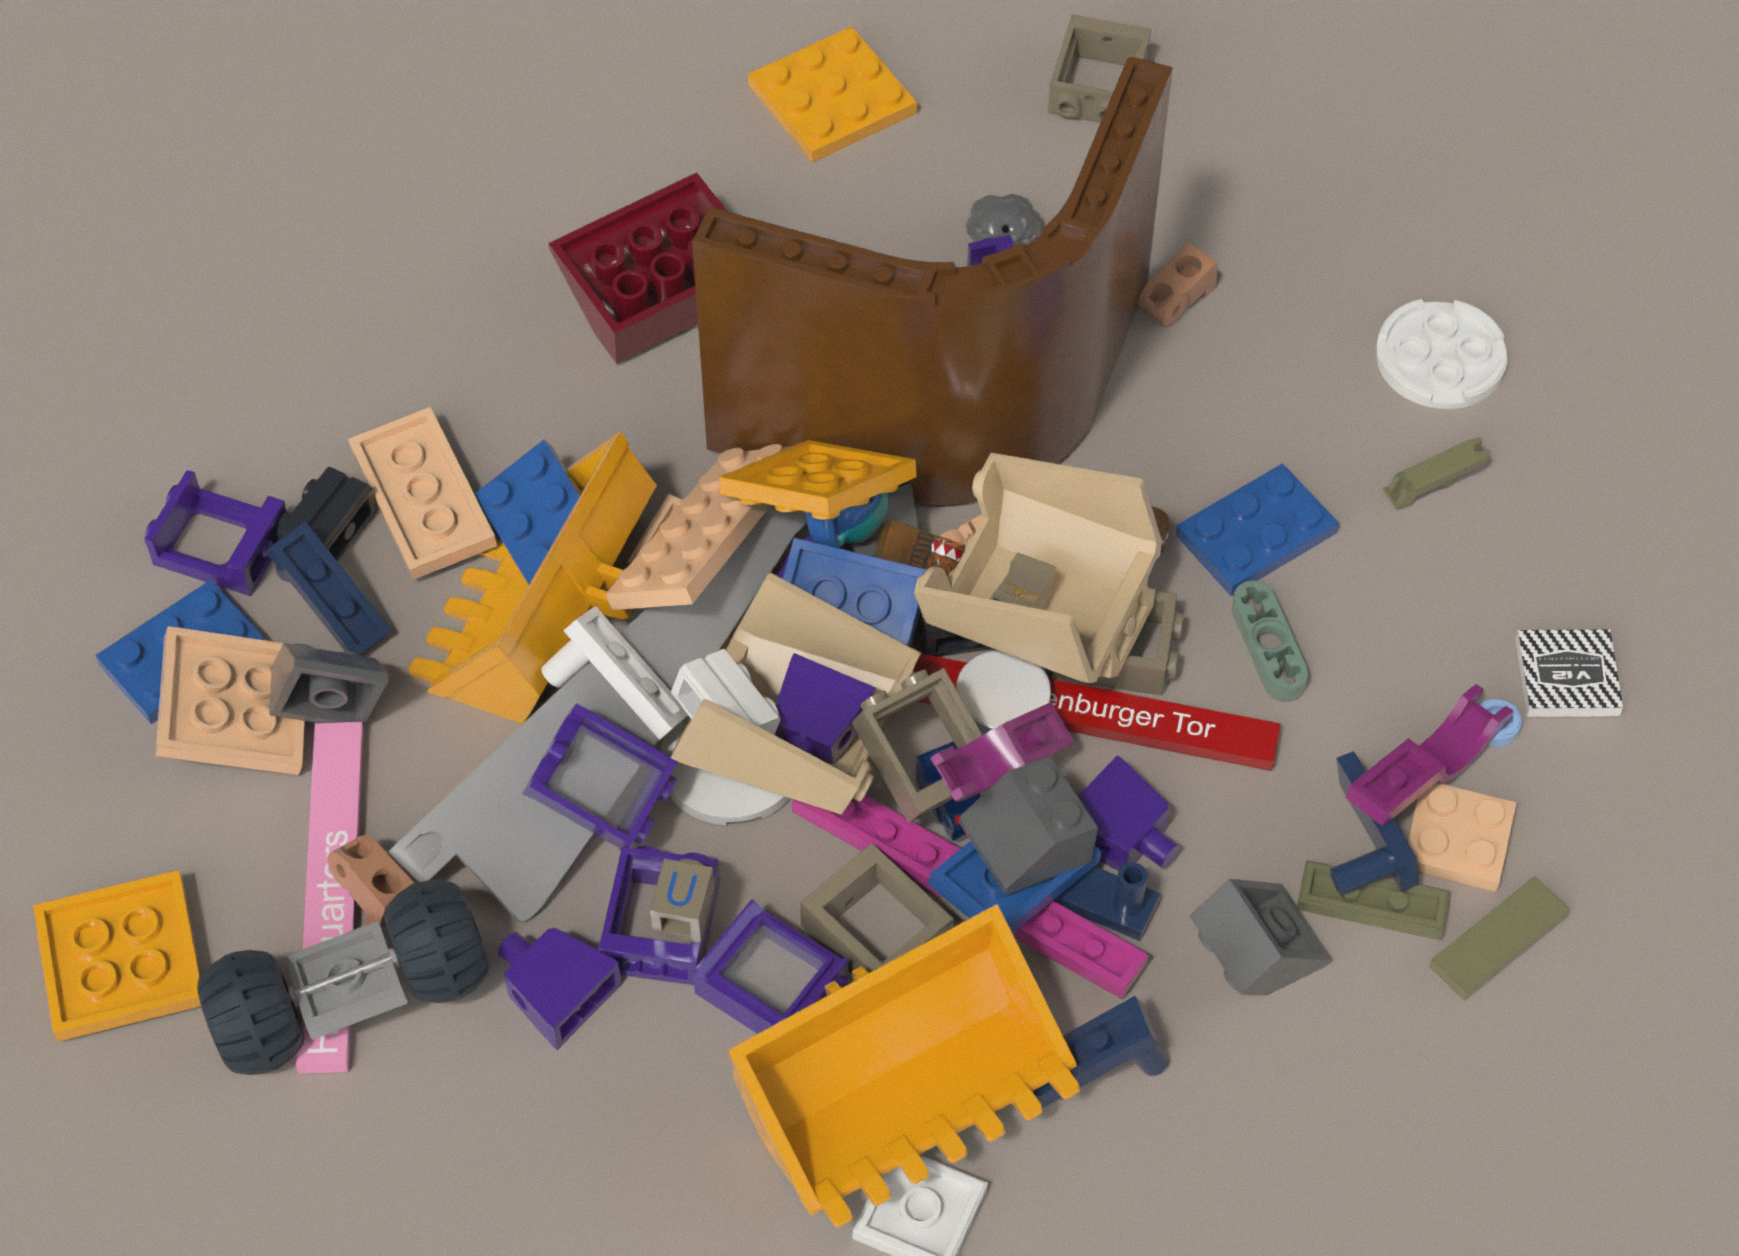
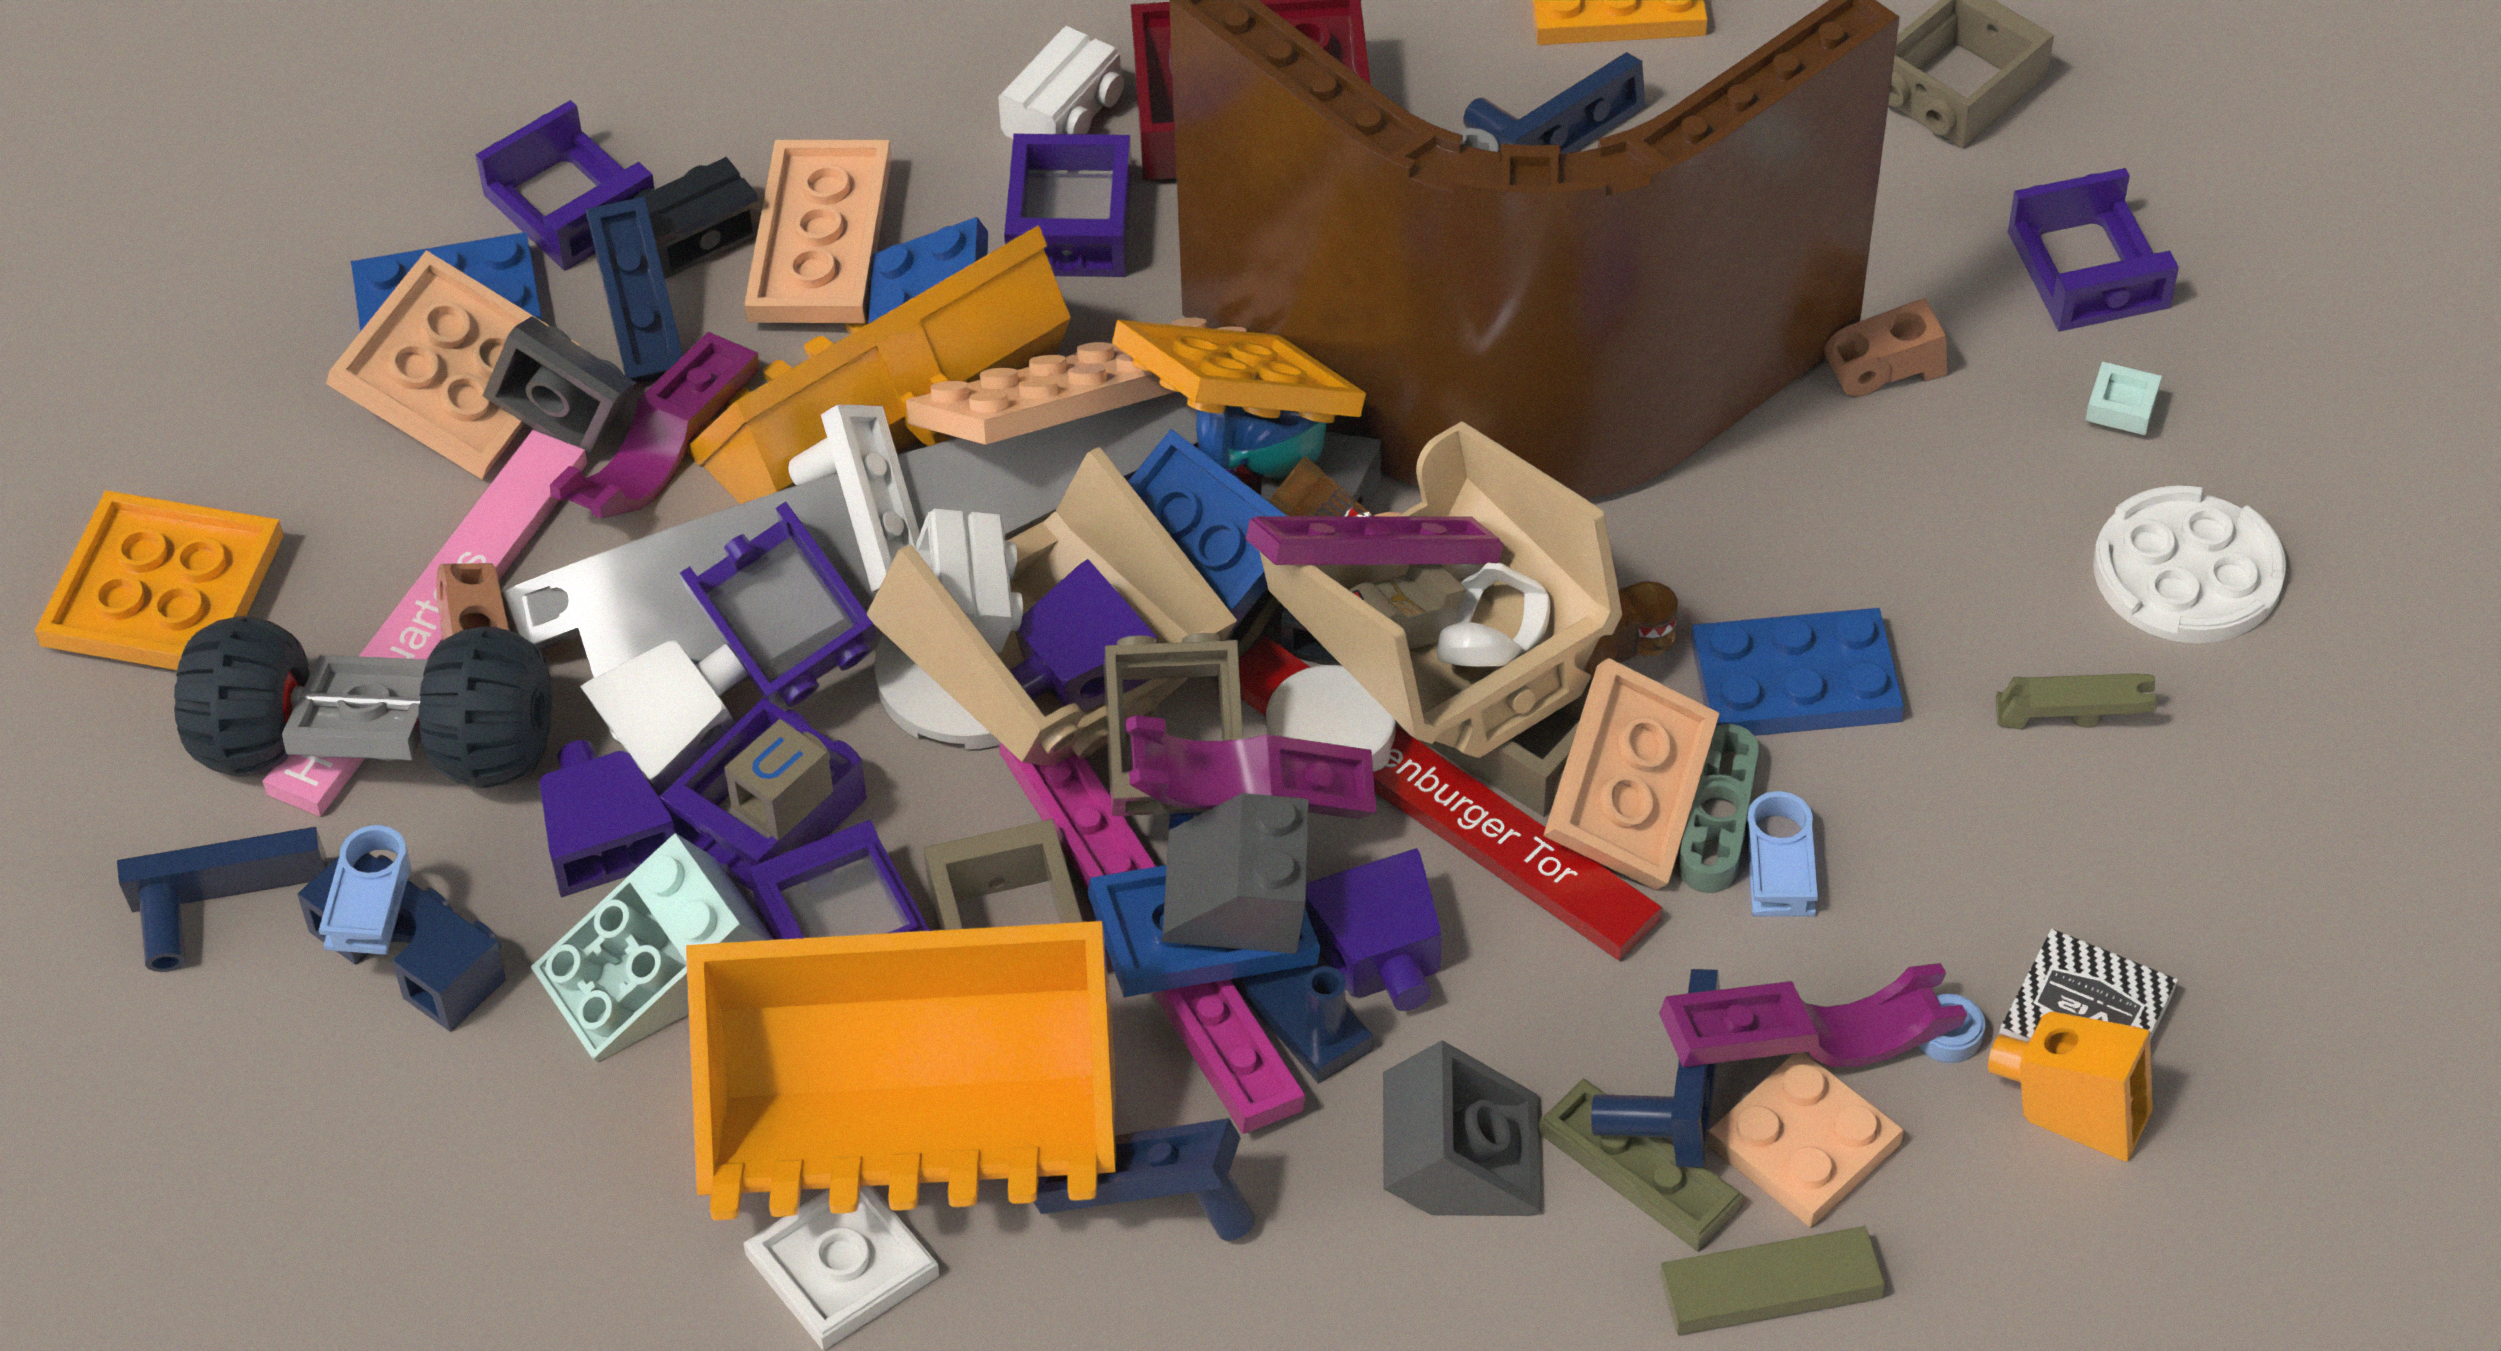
camera: 30 degrees right, 5 degrees down
(277, 1174) = (165, 880): none -> dark blue piece
(409, 687) = (662, 428): none -> magenta piece
(436, 1116) = (447, 961): none -> dark blue arch
(449, 1121) = (362, 904): none -> light blue piece
(523, 323) = (1062, 87): none -> white brick
(558, 882) = (667, 707): none -> white torso
(582, 400) = (1077, 195): none -> dark purple window
(655, 1060) = (626, 960): none -> light aqua slope
(875, 210) = (1572, 116): none -> dark blue piece
(985, 560) = (1373, 540): none -> magenta tile
(1085, 601) = (1482, 646): none -> white piece
(1215, 643) = (1631, 774): none -> light nougat plate
(1297, 178) = (2098, 293): none -> dark purple window
(1332, 665) = (1781, 868): none -> light blue piece
(1338, 259) = (2123, 398): none -> light aqua plate
(1604, 720) = (2082, 1079): none -> light orange torso

